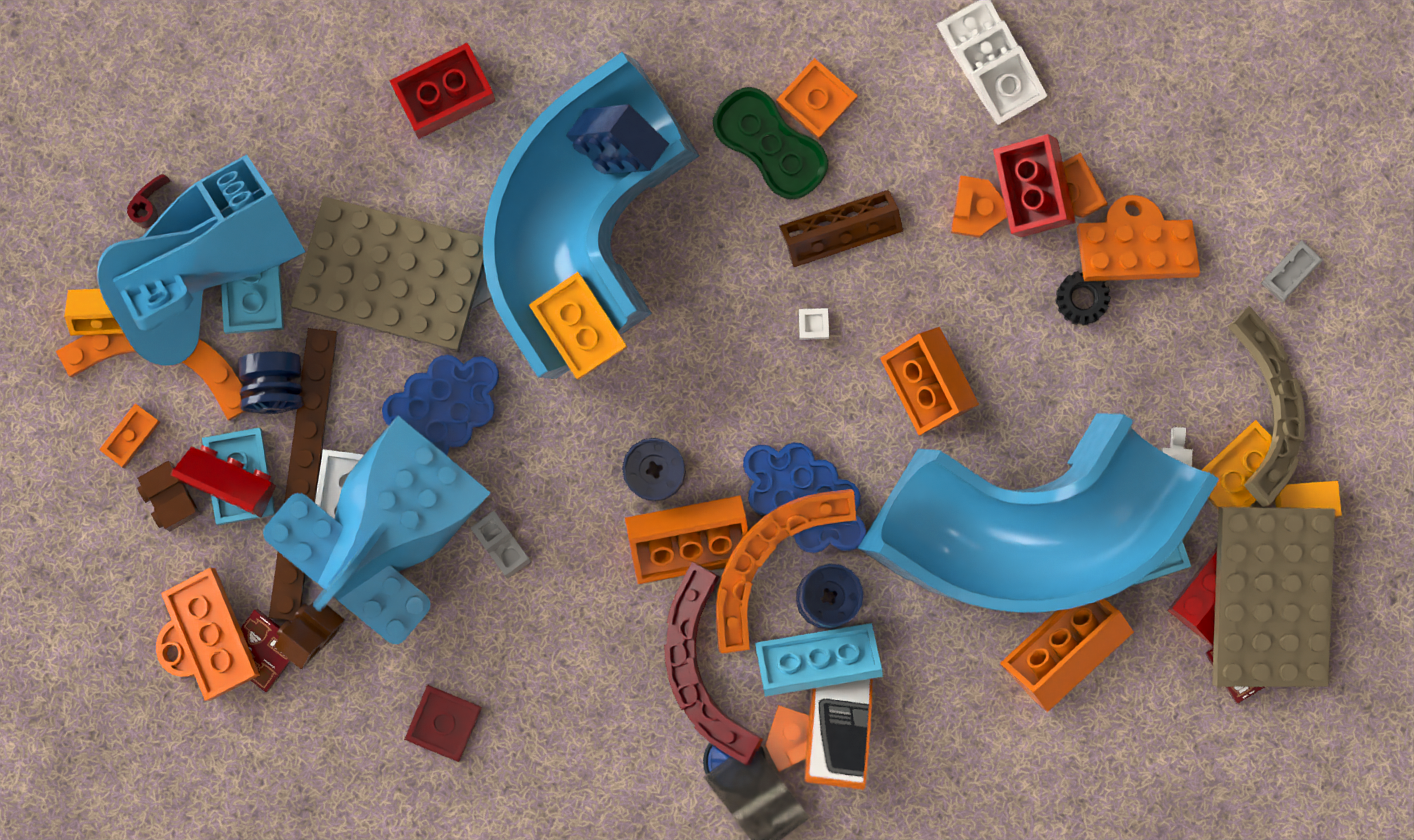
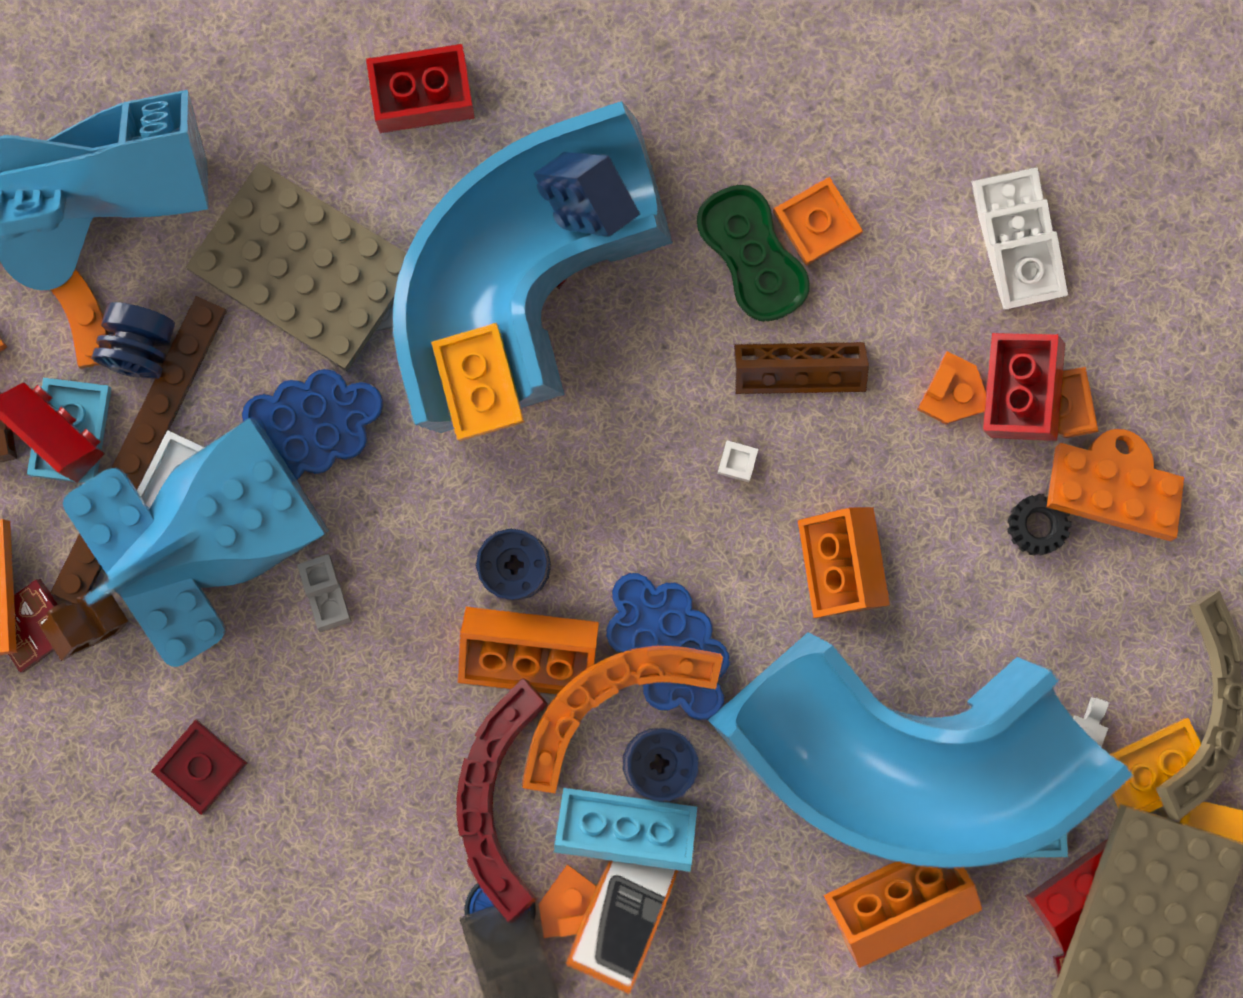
camera: 15 degrees right, 0 degrees up
(140, 201) = (64, 104): dark red panel -> none
(253, 303) = (148, 249): medium azure plate -> none

